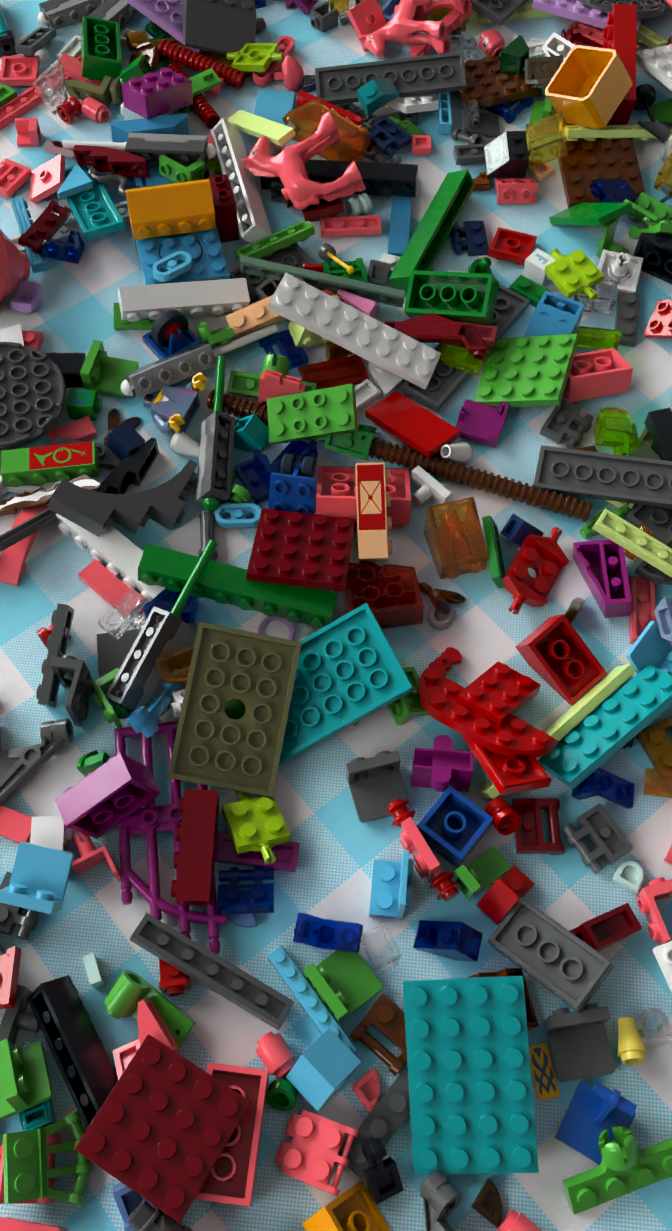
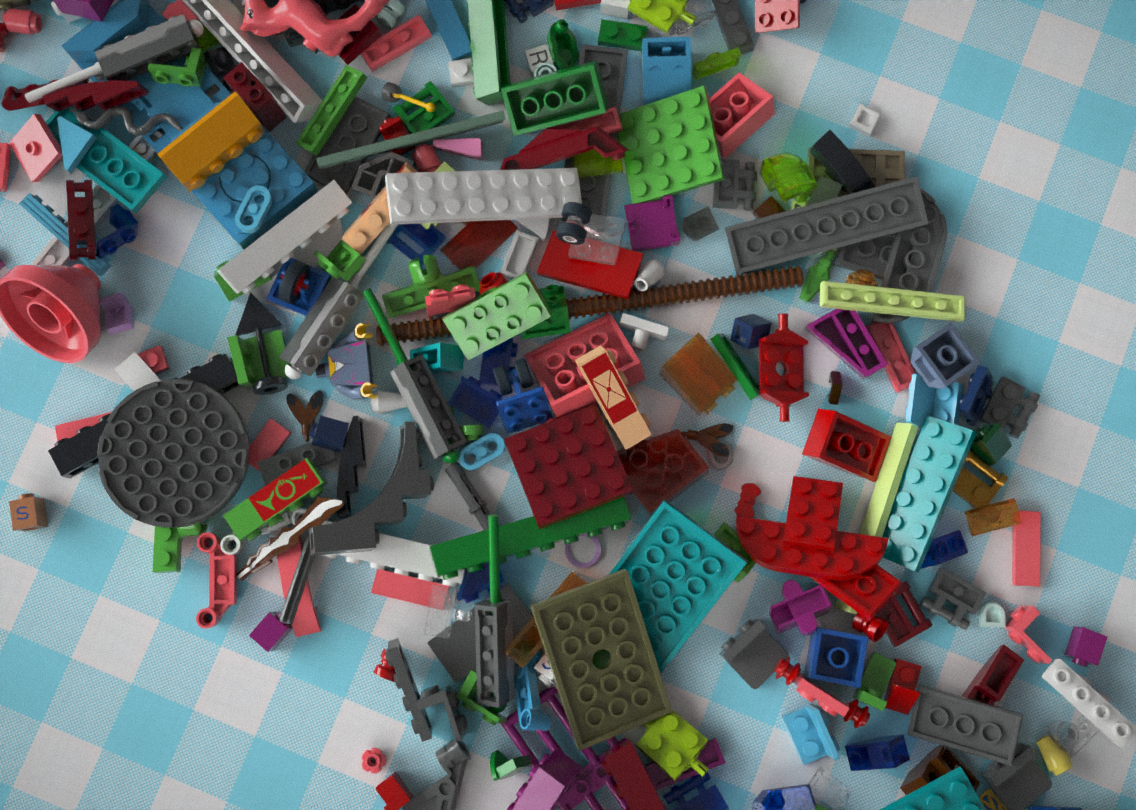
camera: 25 degrees left, 20 degrees up
(83, 403) = (258, 409): green brick -> none
(123, 347) = (255, 319): none -> black piece
(379, 272) = (458, 91): dark grey plate -> none
(423, 401) = (590, 235): none -> clear plate
(520, 438) = (700, 224): none -> clear smoke plate

